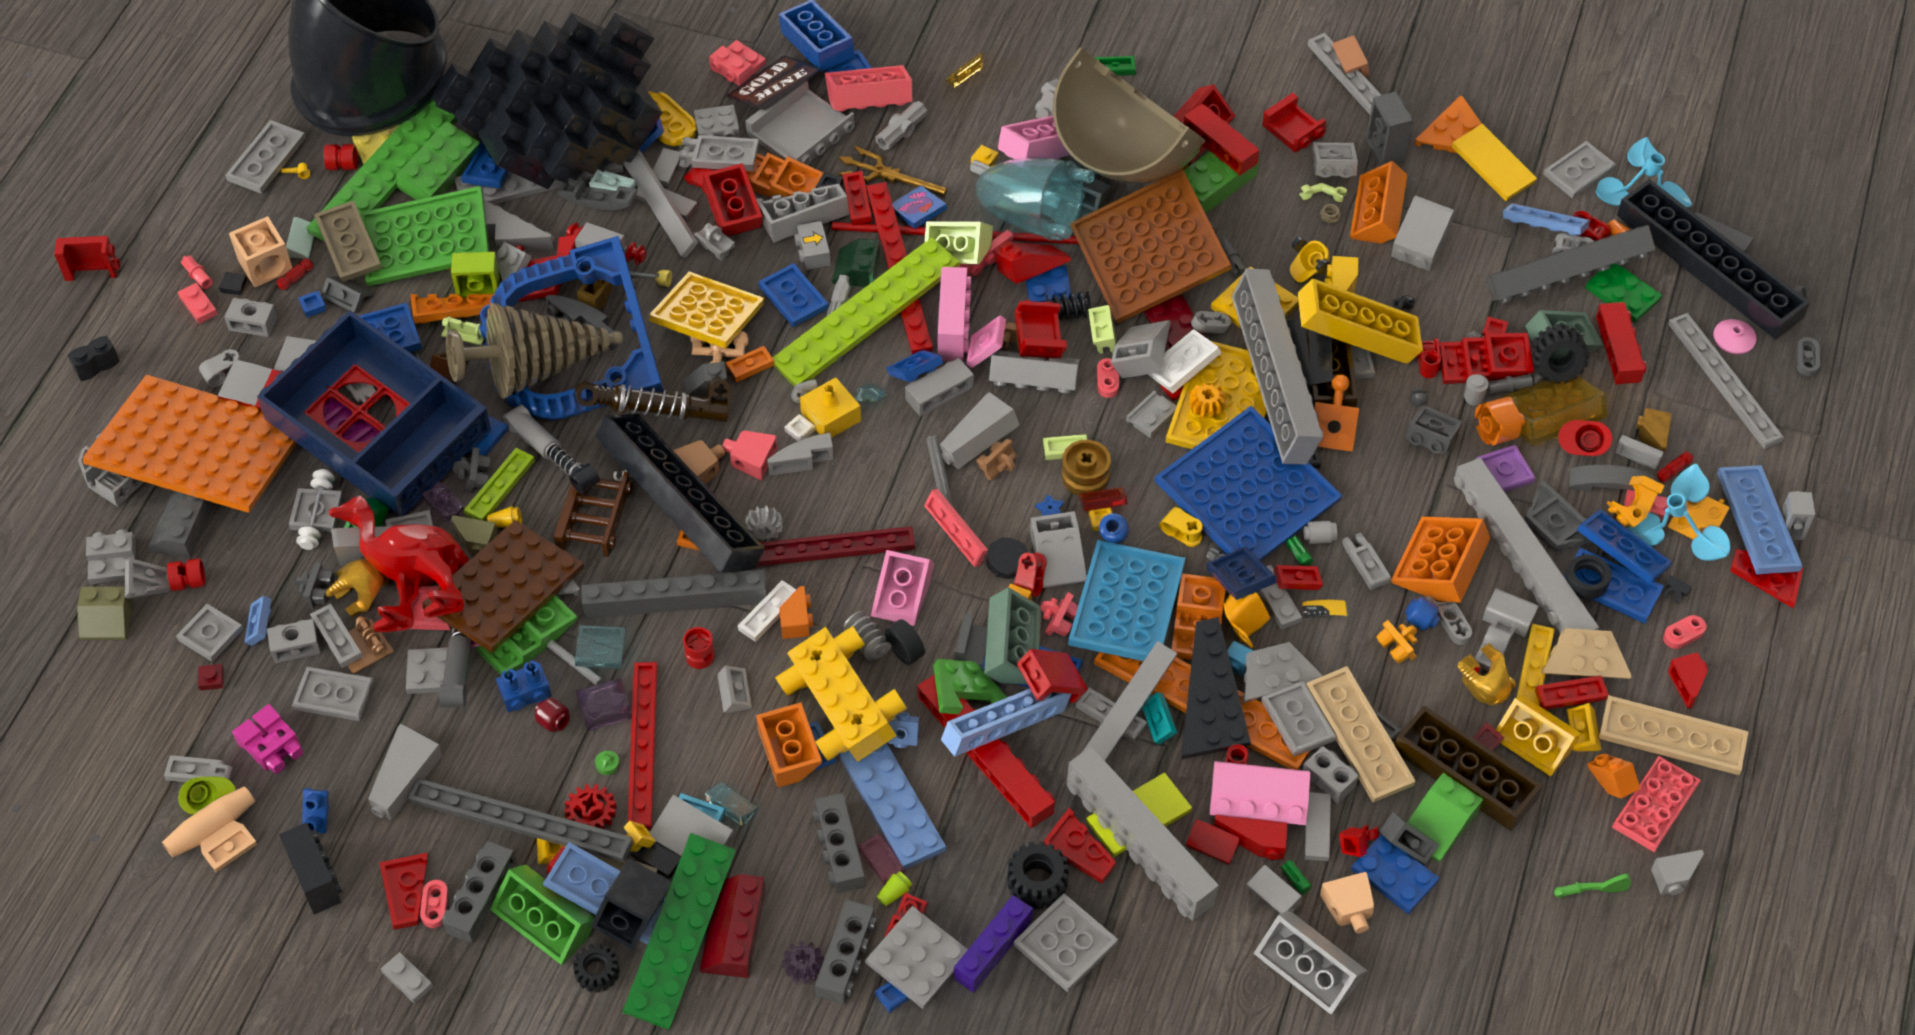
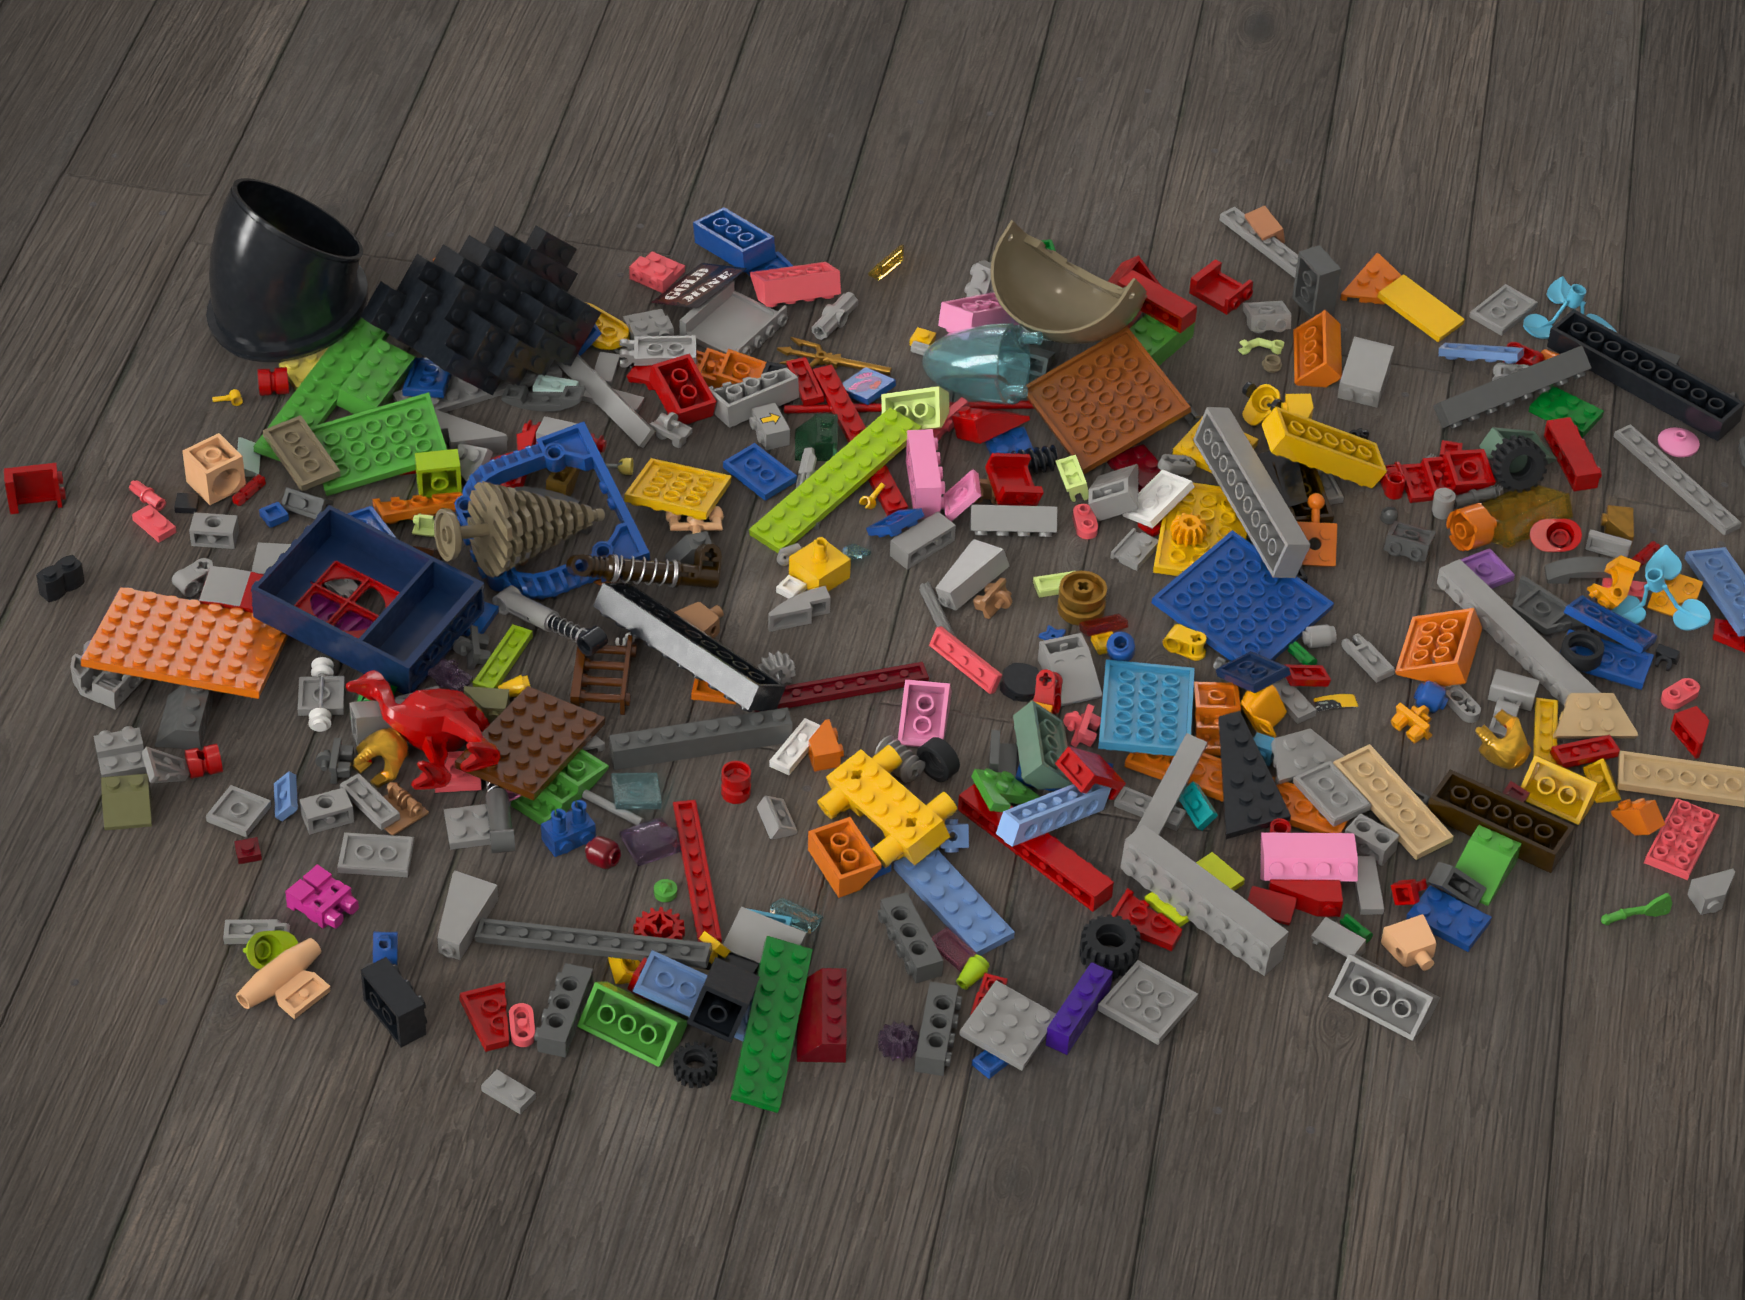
camera: 10 degrees left, 10 degrees down
(265, 156) = (194, 387): light grey plate -> none
(750, 364) = (731, 534): orange plate -> none
(751, 452) = (749, 611): coral torso -> none
(897, 336) = (871, 499): none -> yellow hand

